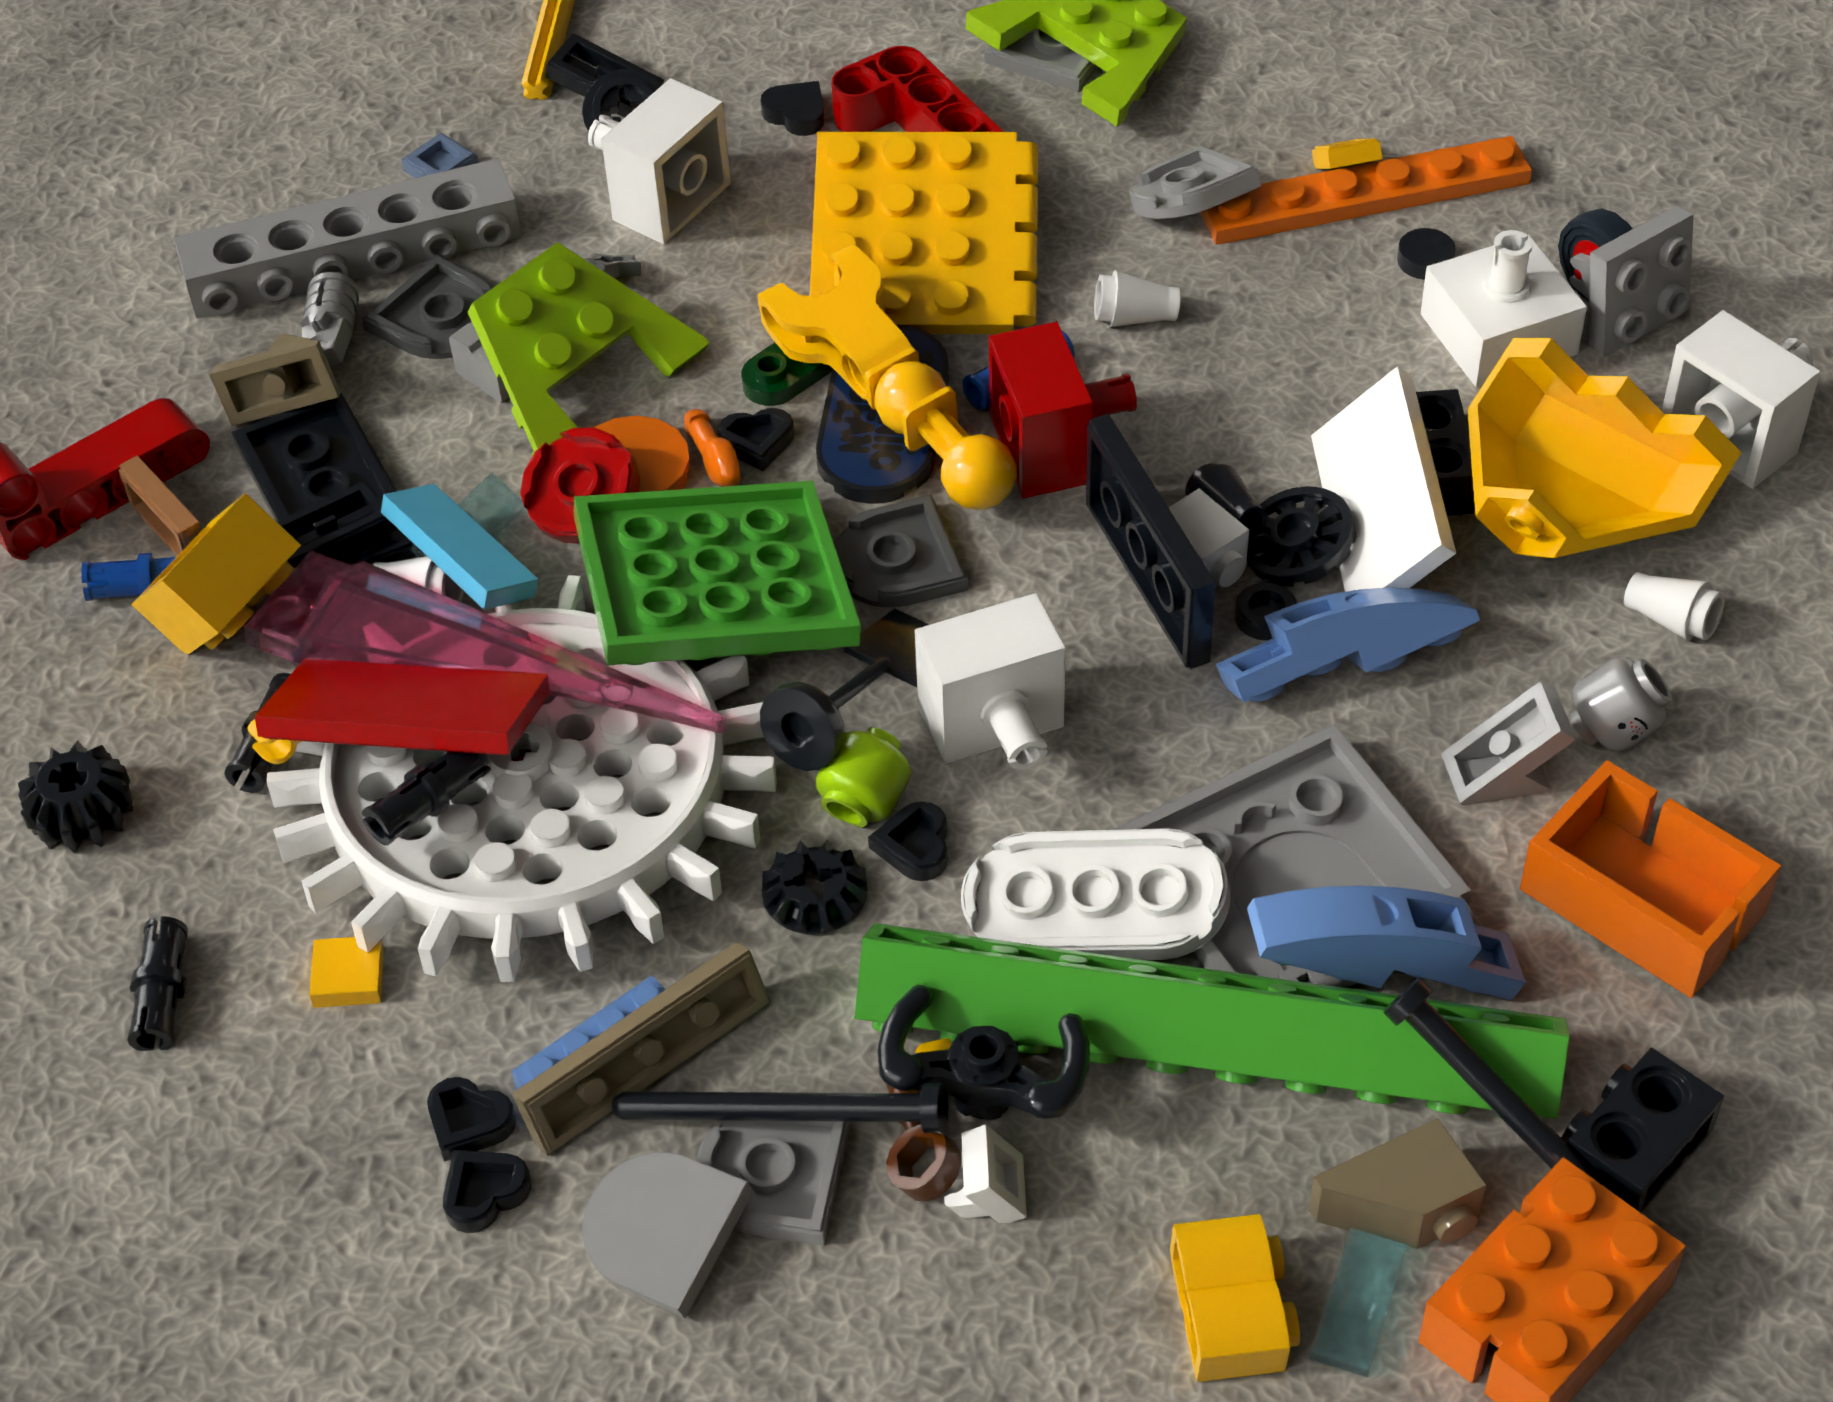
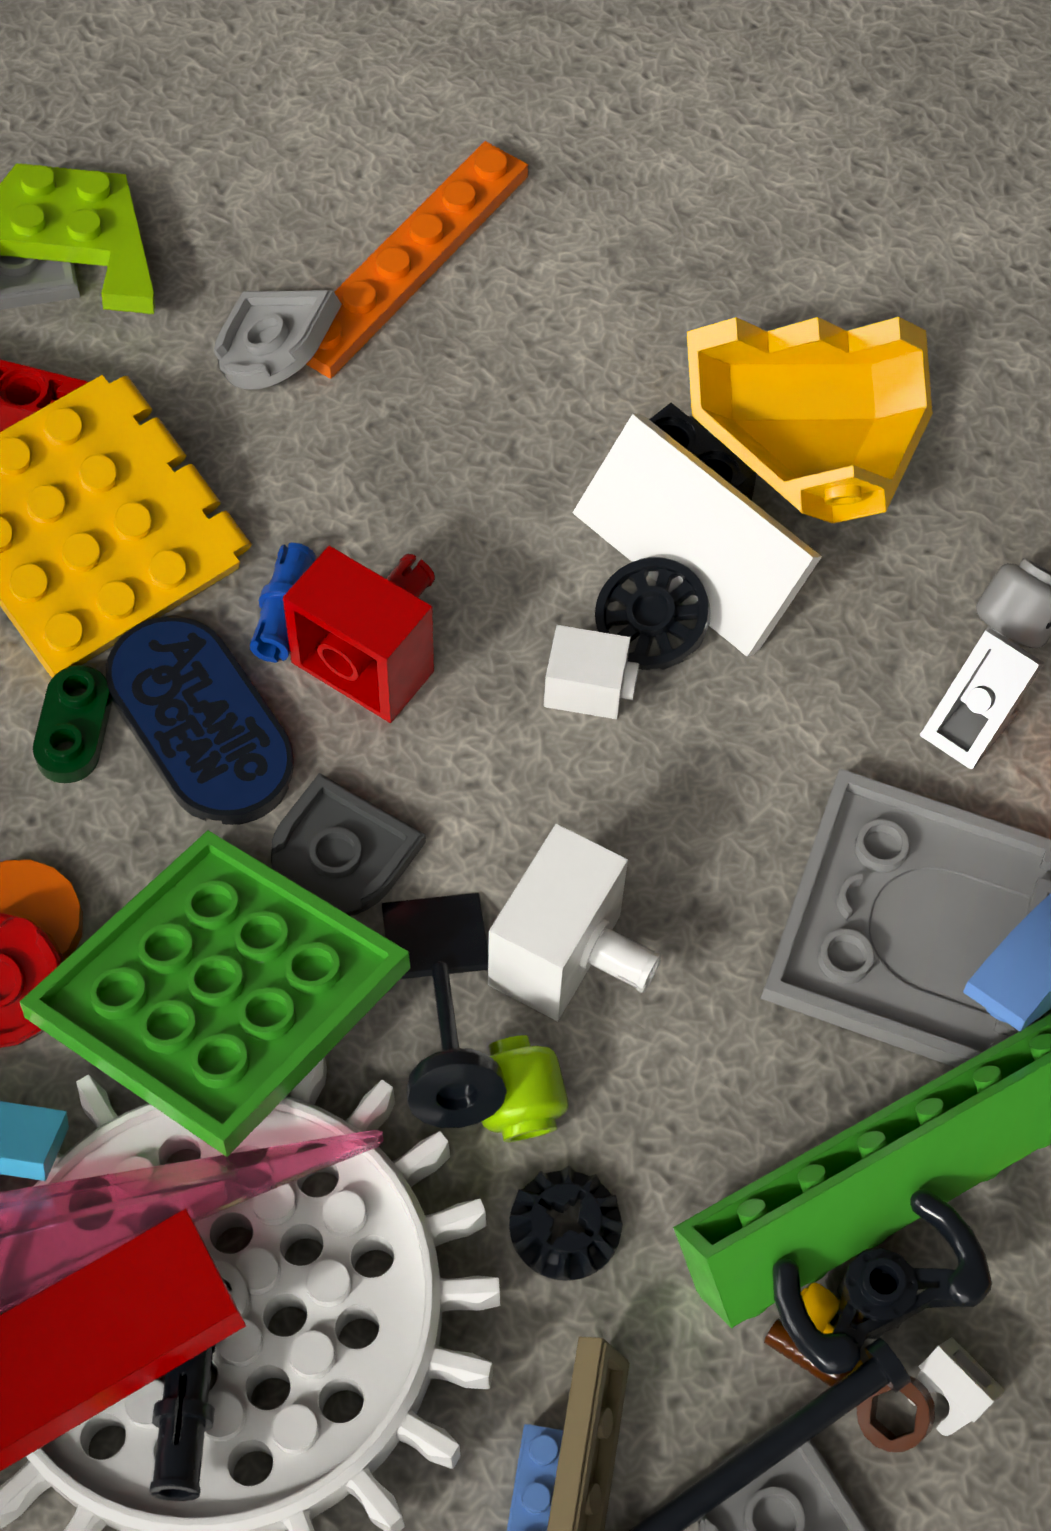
camera: 45 degrees left, 10 degrees up
(717, 452) = (92, 860): orange piece -> none
(758, 437) = (106, 818): black tile -> none
(878, 362) = (187, 681): yellow piece -> none
(914, 841) = (605, 1116): black tile -> none
(1099, 892) = (803, 1060): white tile -> none
(1133, 300) = (319, 476): white cone -> none
(1149, 542) = (564, 701): black tile -> none
(1230, 492) = (571, 610): black cone -> none
(1257, 602) = (683, 698): black tile -> none
(1347, 153) = (372, 231): yellow tile -> none
(1365, 625) = (770, 680): medium blue slope -> none
(1423, 248) = (510, 288): black tile -> none
(1496, 296) = (627, 306): white brick -> none
(1628, 274) = (692, 218): light grey plate -> none
(1677, 604) = (972, 489): white cone -> none
(1747, 389) = (880, 271): white brick -> none

